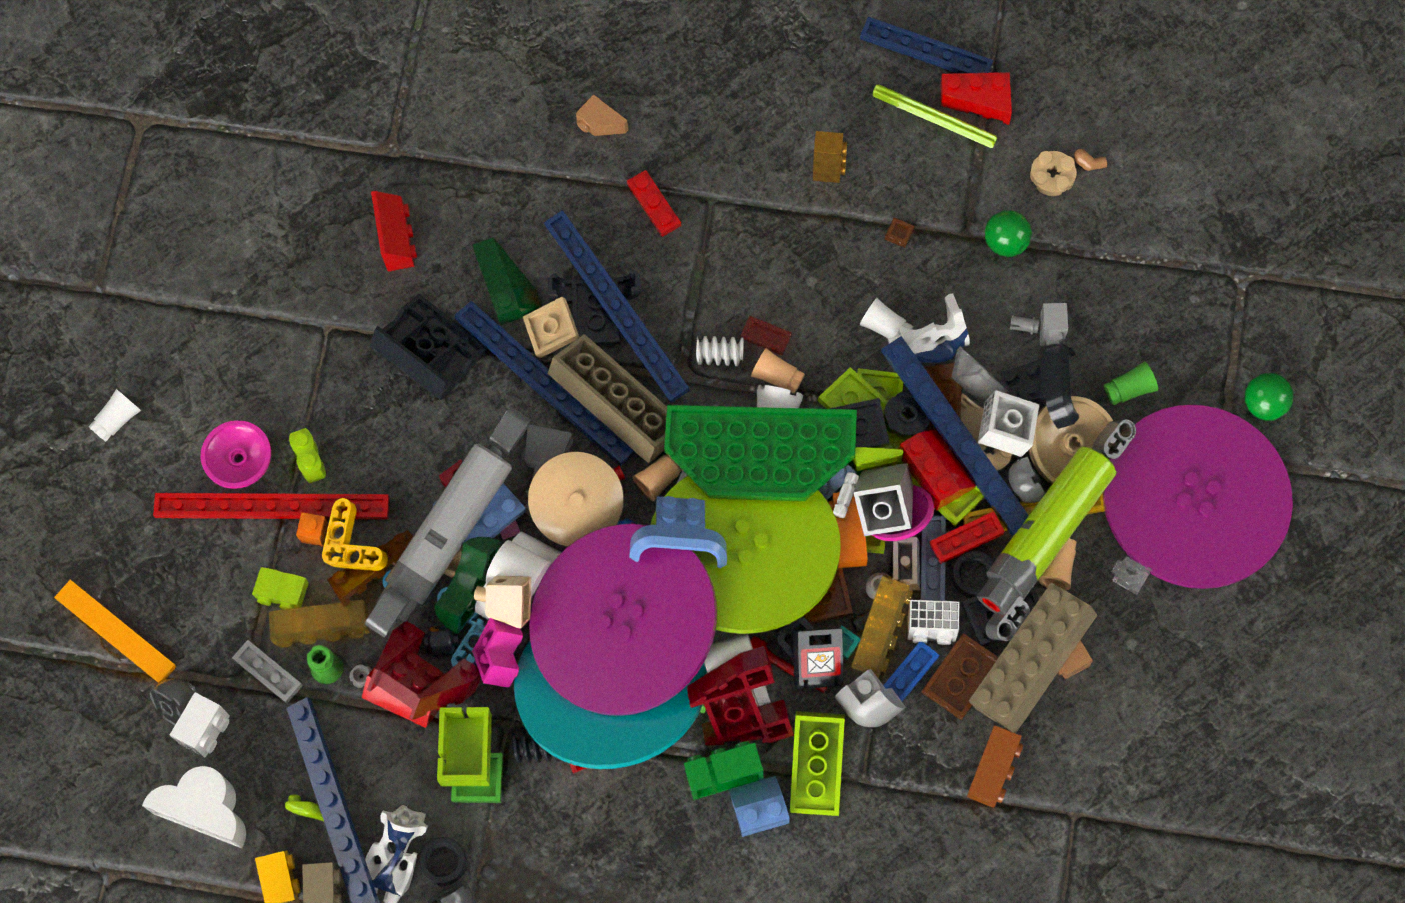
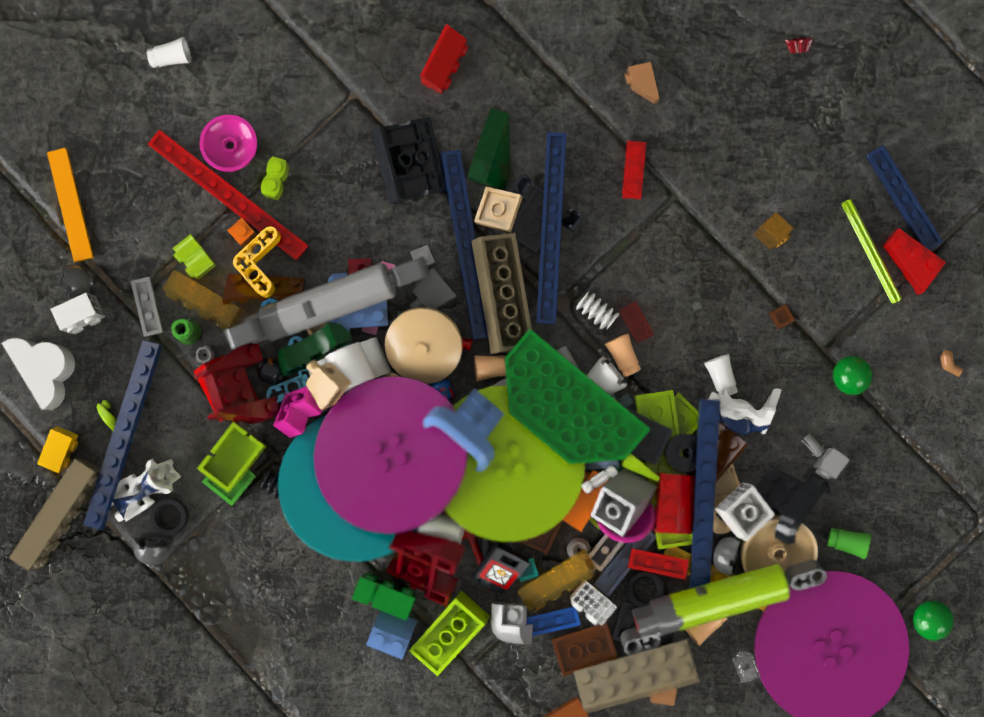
camera: 35 degrees right, 15 degrees up
(974, 376) = (751, 459): clear slope -> none
(1053, 160) = (923, 343): tan plate -> none

